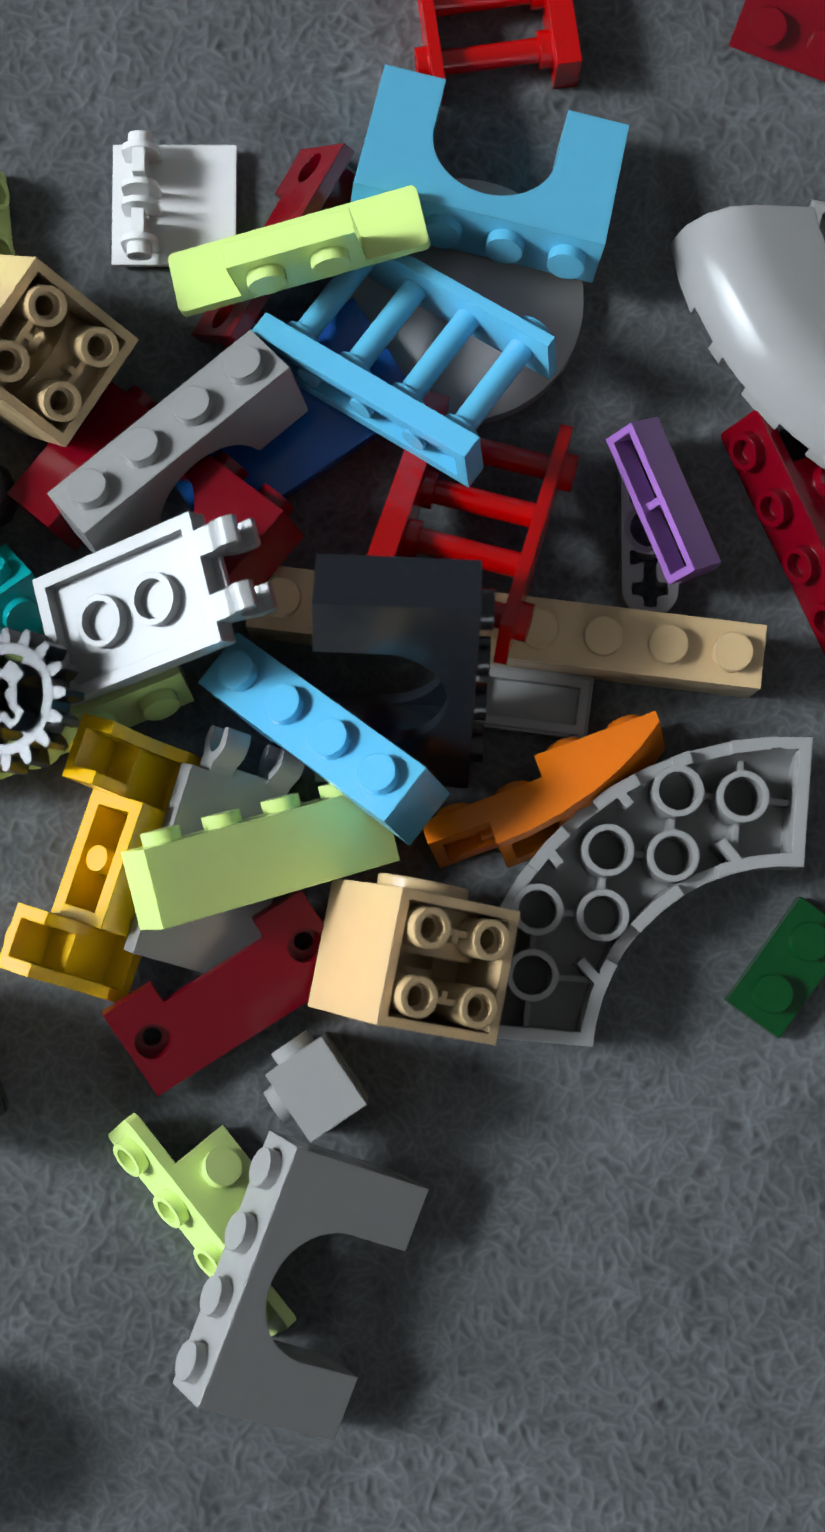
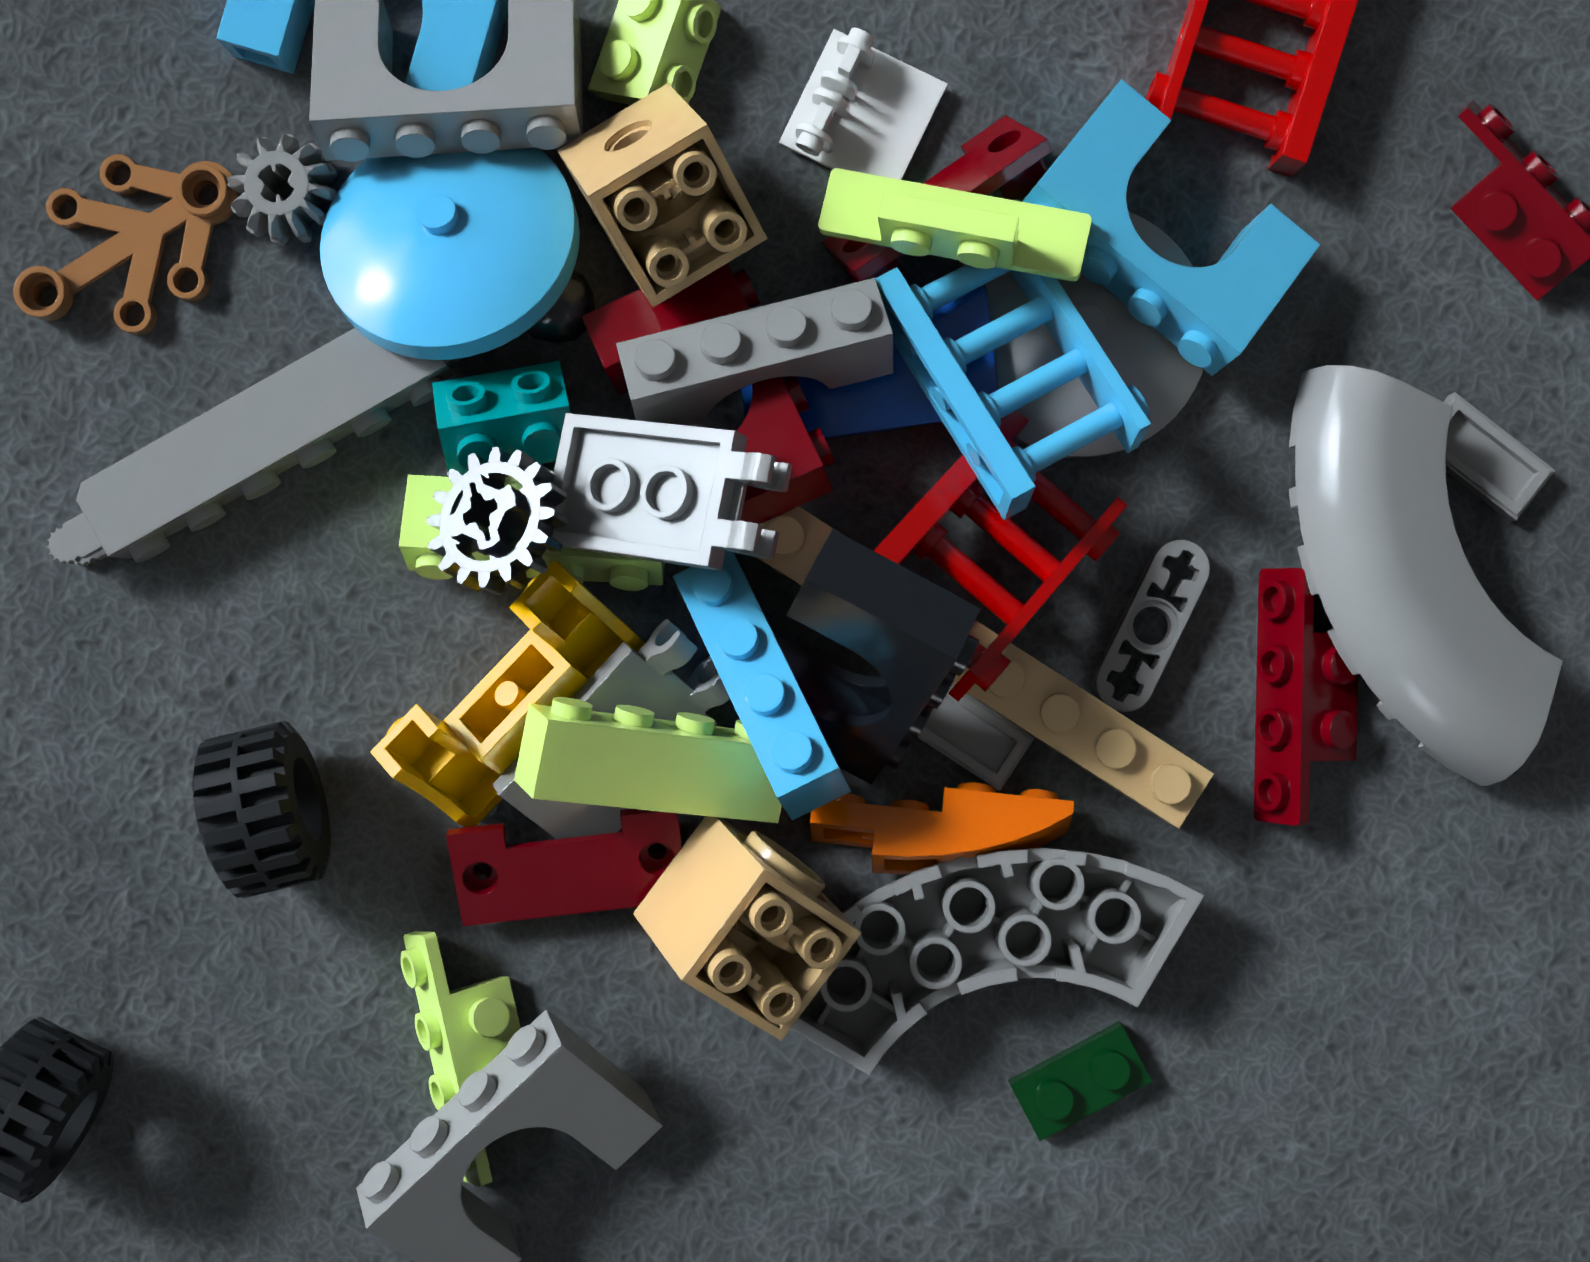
camera: 25 degrees right, 5 degrees up
(313, 1085) = (605, 988): light grey brick -> none
(672, 497) = (1187, 612): medium lavender piece -> none

